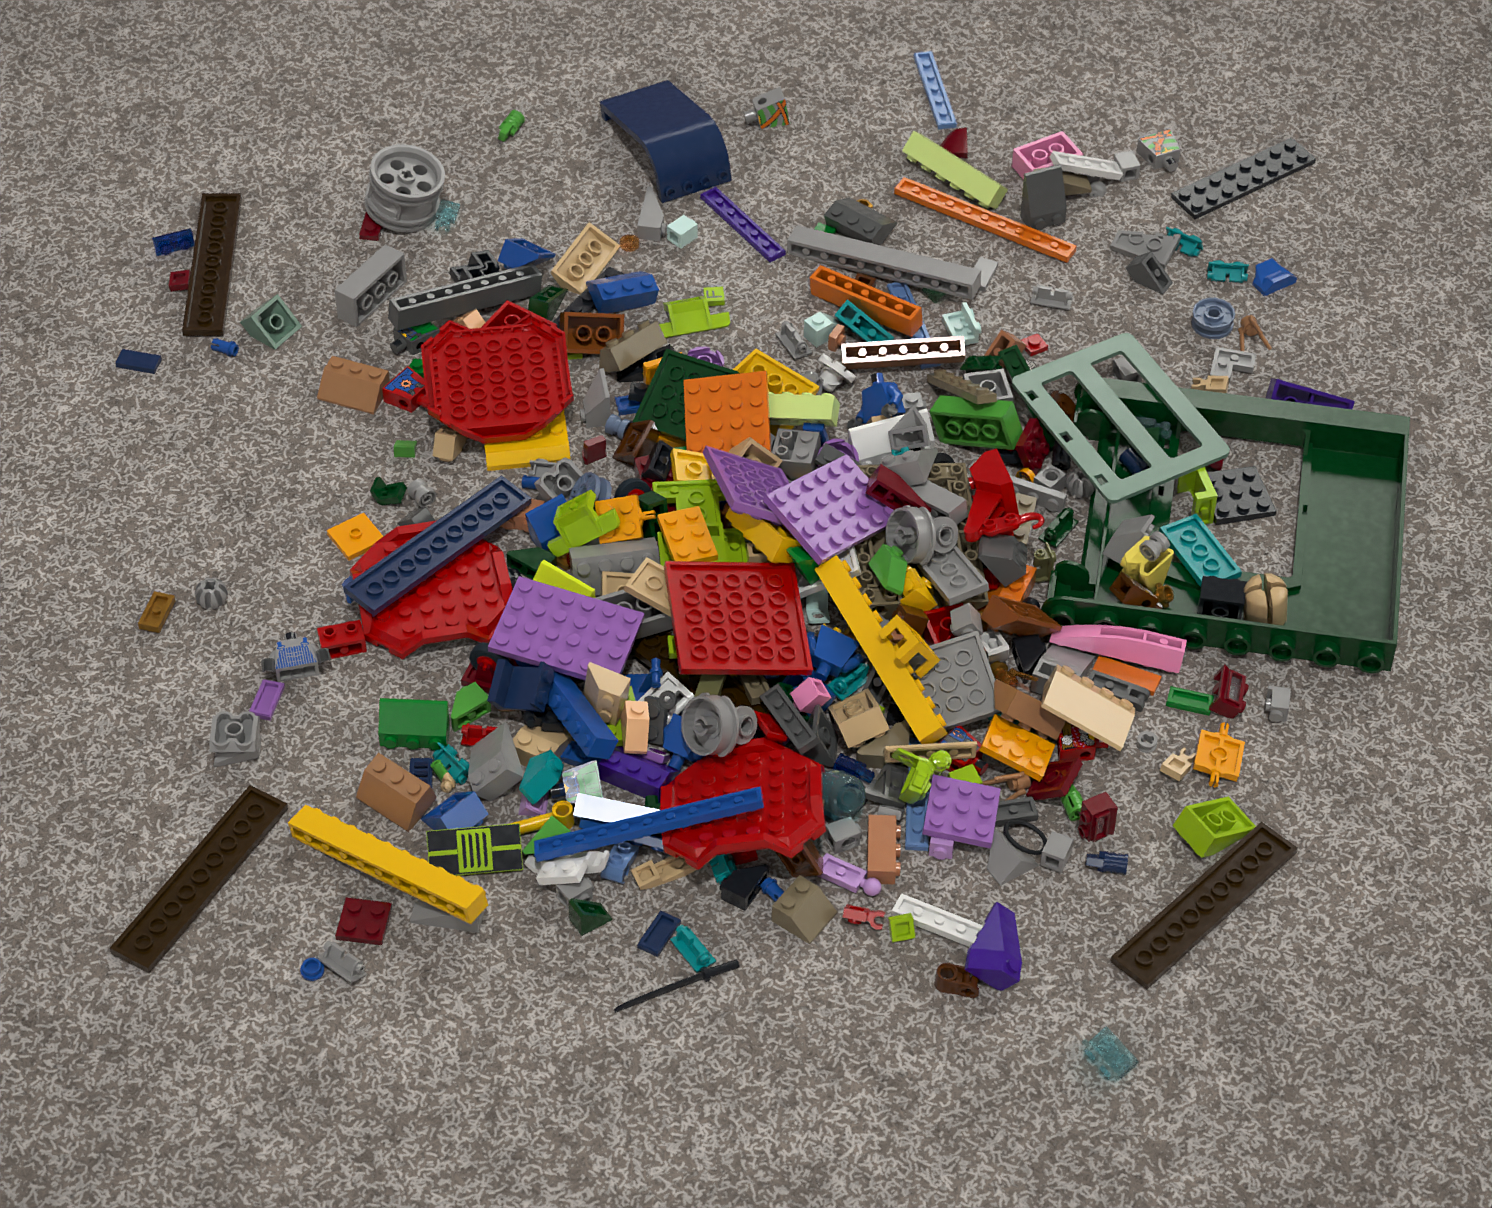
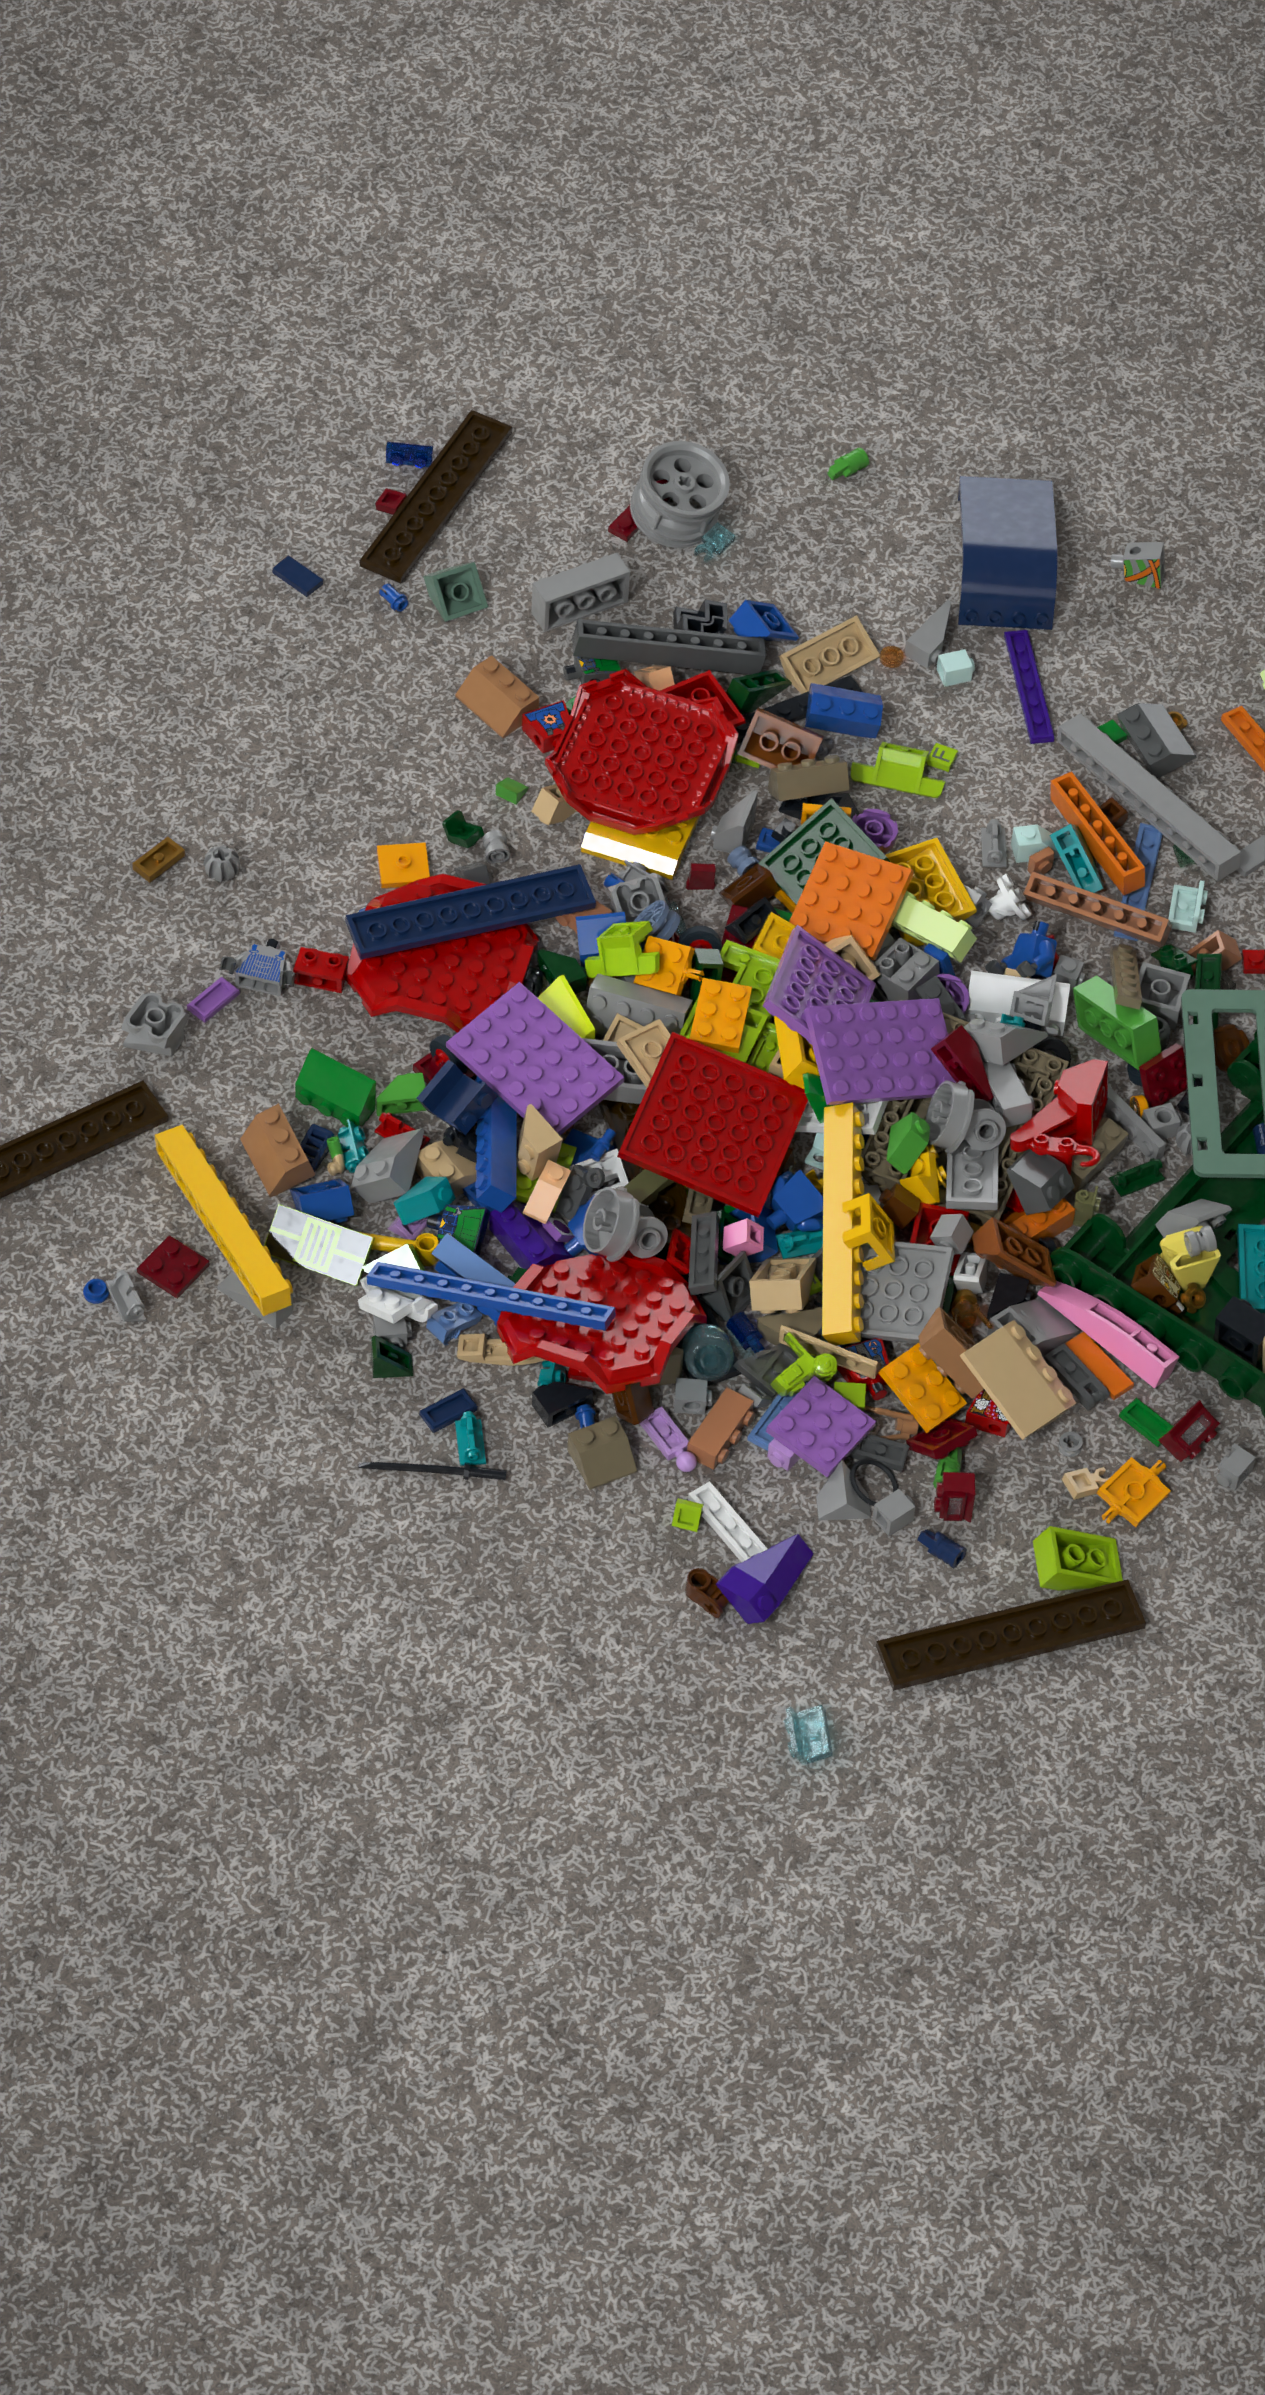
camera: 25 degrees right, 5 degrees up
(858, 914) = (655, 1482): plate -> none

